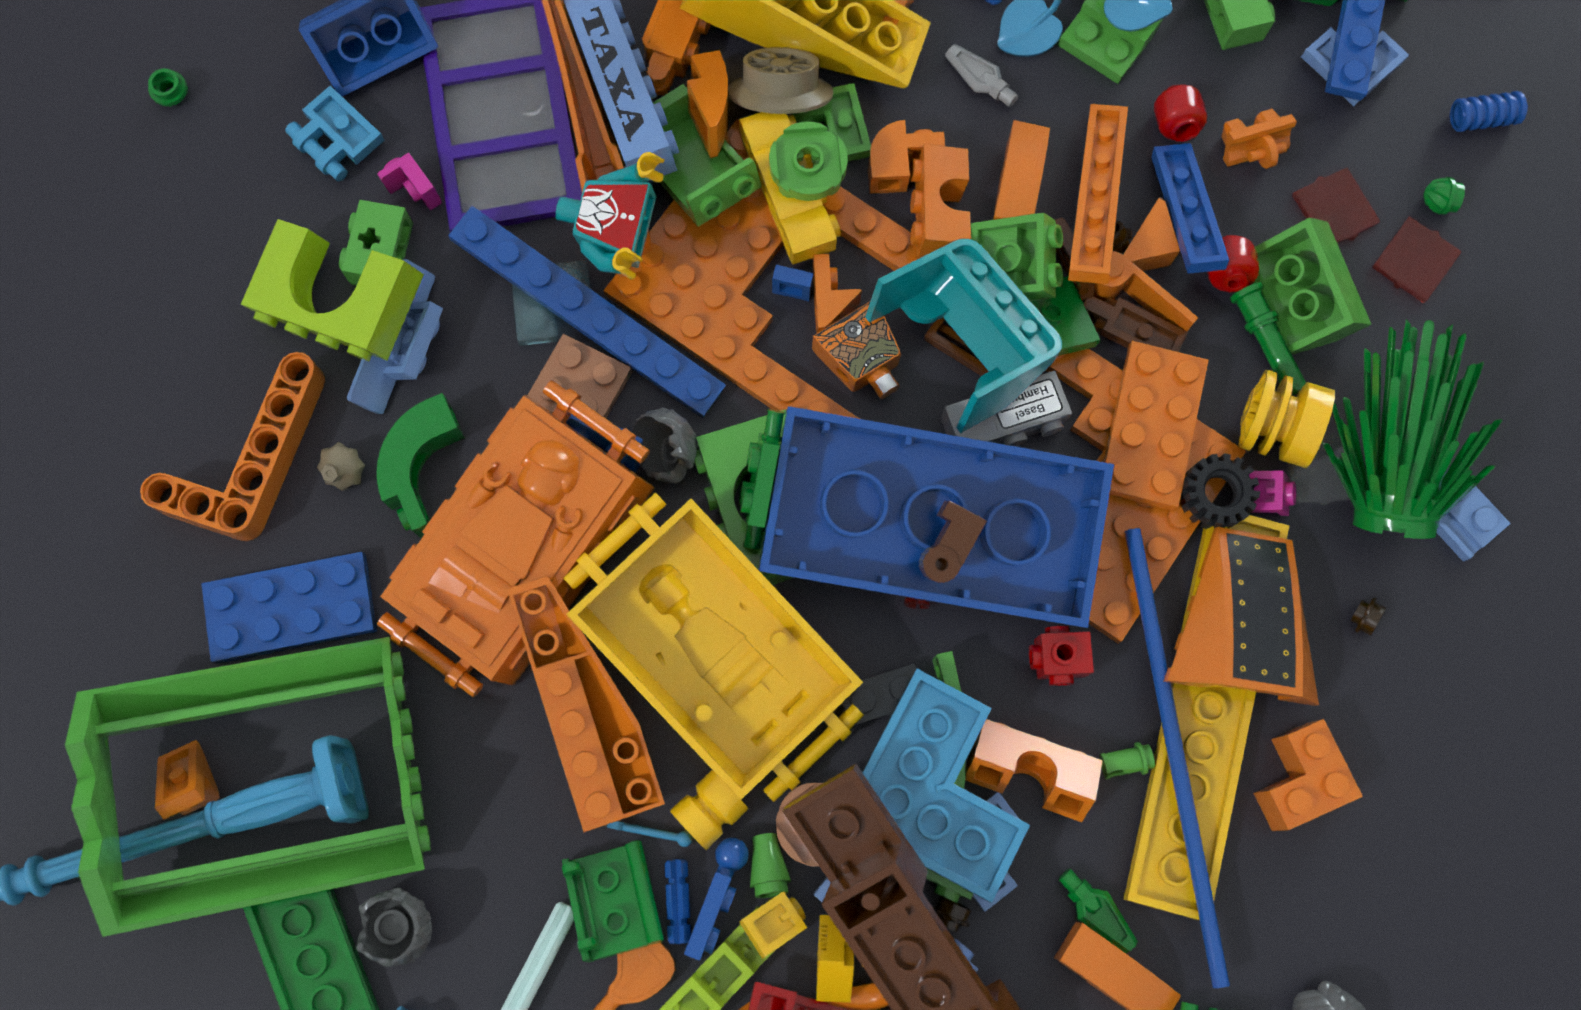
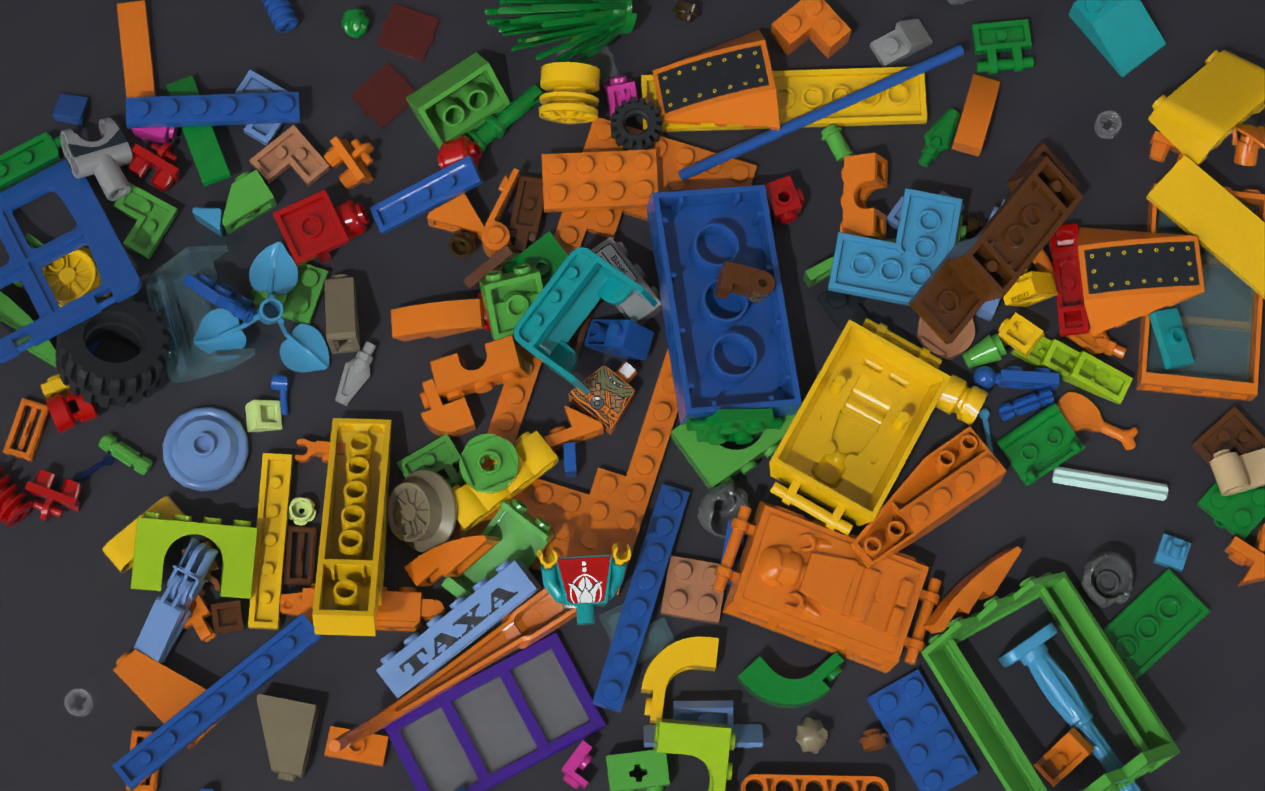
camera: 105 degrees left, 0 degrees up
(305, 542) = (873, 740): none -> dark orange plate
(452, 747) = (979, 584): none -> orange slope
(497, 349) = (682, 655): none -> yellow arch
(931, 389) = (619, 338): none -> blue slope
(1059, 69) = (341, 314): none -> dark tan slope
(1098, 195) = (439, 259): orange plate -> none
(1179, 58) = (311, 228): none -> red bracket
(1254, 910) = (900, 43): none -> light grey slope
(1287, 74) = (293, 151): none -> nougat plate

